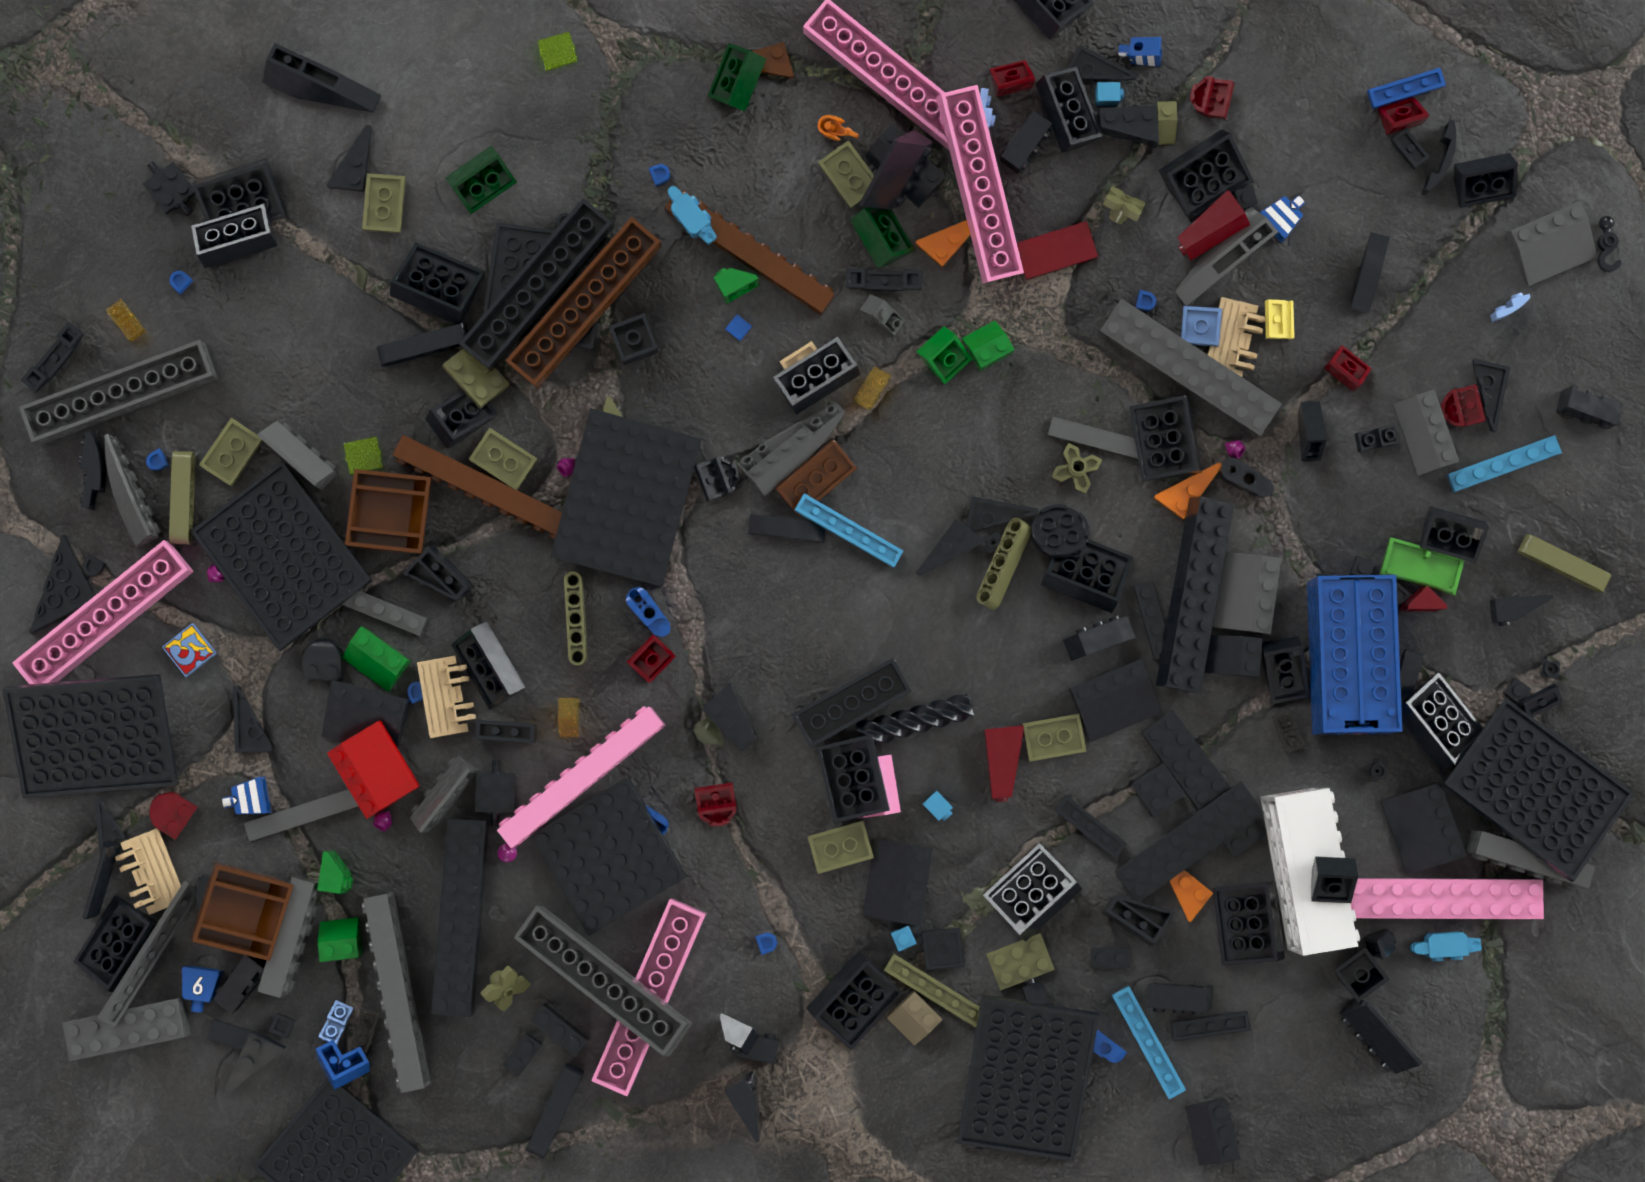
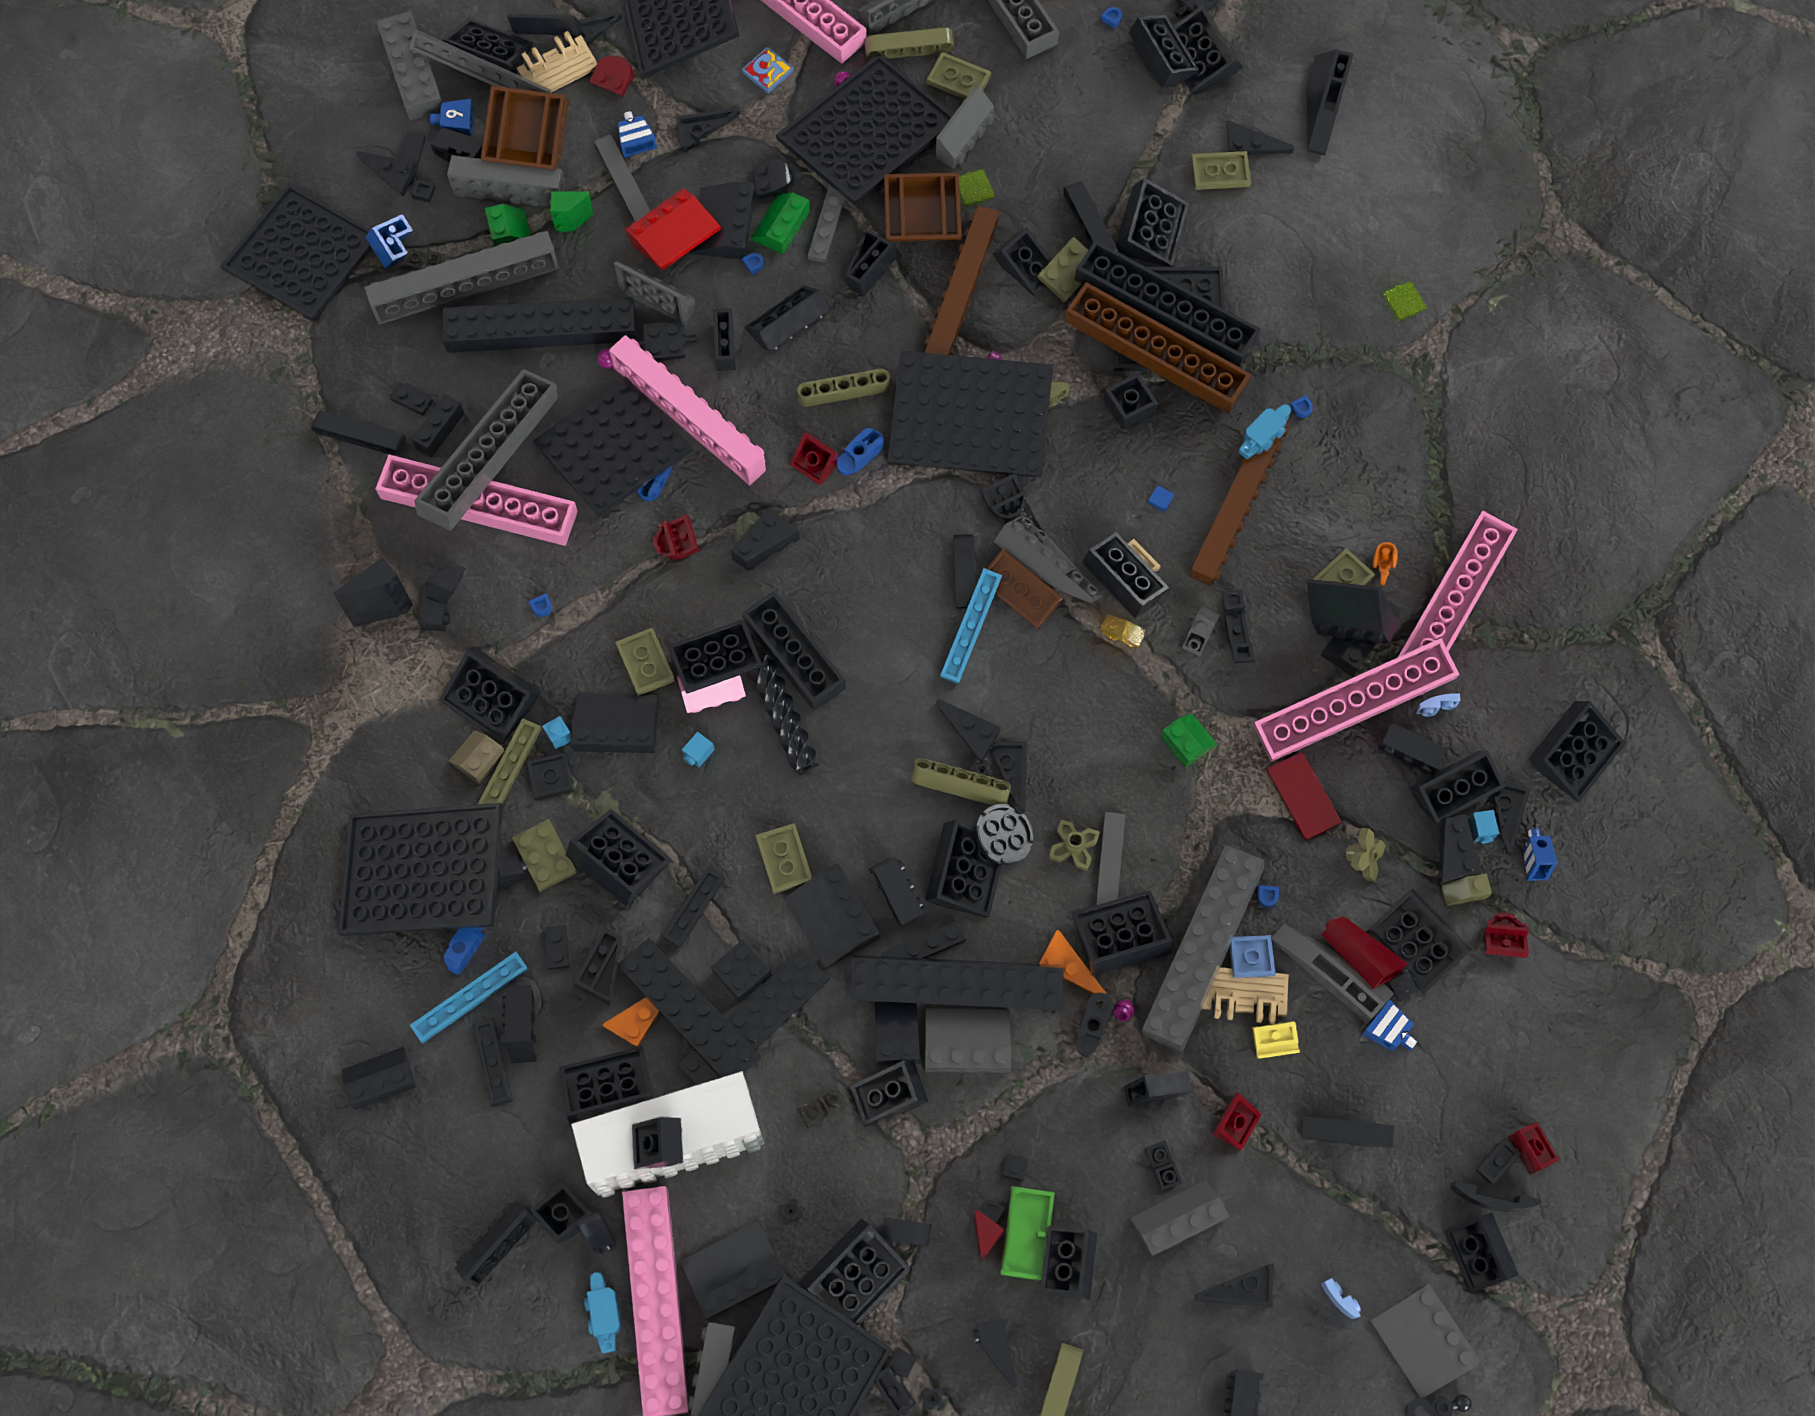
camera: 80 degrees right, 15 degrees down
(156, 460) = (941, 20): blue tile -> none
(336, 1022) = (428, 236): light blue slope -> none
(382, 821) = (625, 248): magenta plate -> none
(441, 697) = (751, 282): tan hinge -> none
(481, 179) = (1261, 248): dark green slope -> none
(503, 459) = (991, 304): olive plate -> none
(503, 987) = (473, 370): olive plant -> none
(568, 717) = (746, 394): clear yellow slope -> none
(734, 283) = (1202, 483): green slope -> none
(736, 77) = (1415, 461): dark green slope -> none
(777, 60) = (1441, 492): reddish brown wing -> none
(882, 235) = (1283, 620): dark green slope -> none
(944, 354) = (1170, 696): green slope -> none
(945, 243) = (1287, 682): orange wing -> none
(1002, 759) = (753, 808): dark red slope -> none
(1012, 78) = (1477, 727): dark red slope -> none
(1354, 655) = (914, 1157): blue piece -> none
(1406, 88) = (1566, 1149): blue plate -> none
(1463, 407) = (1216, 1258): dark red slope -> none
(1504, 463) = (1160, 1316): dark azure plate -> none

